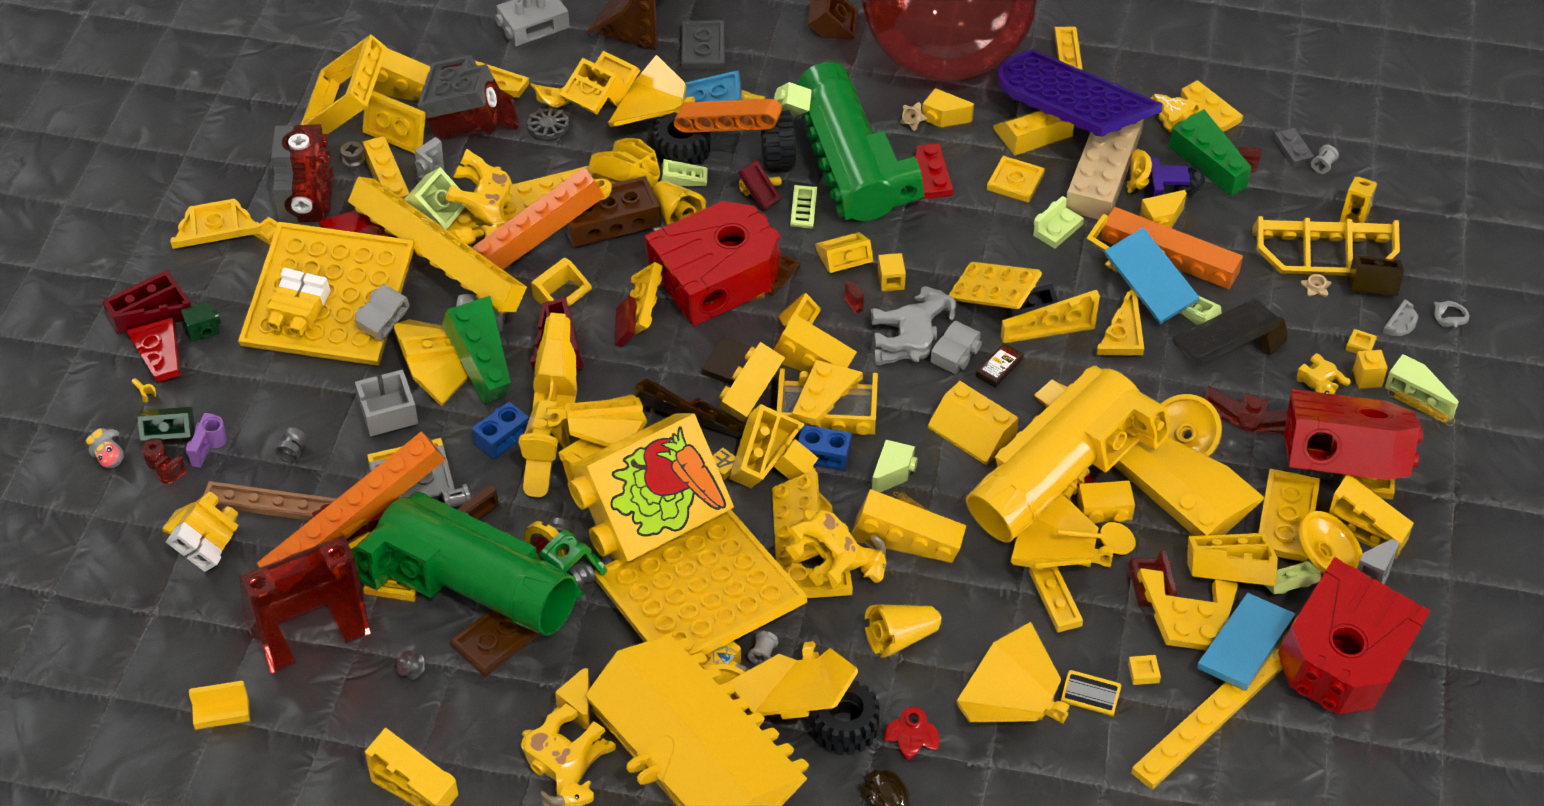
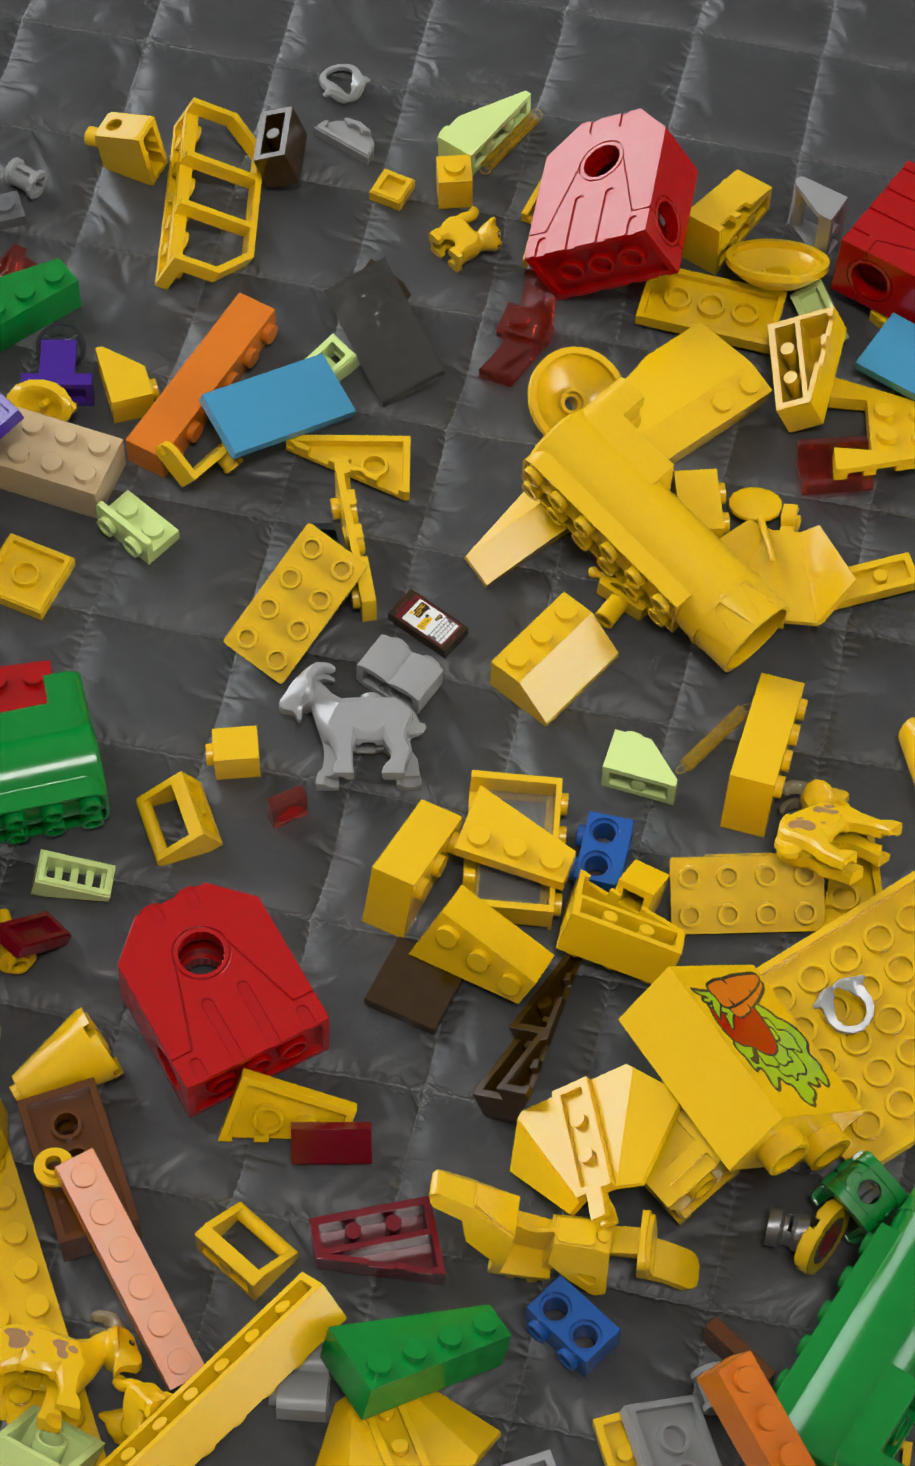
camera: 90 degrees left, 10 degrees up
(716, 559) = (854, 986): none -> light grey piece
(724, 462) = (622, 995): yellow tile -> none
(802, 307) = (321, 891): yellow slope -> none
(1320, 281) = (280, 218): tan plate -> none

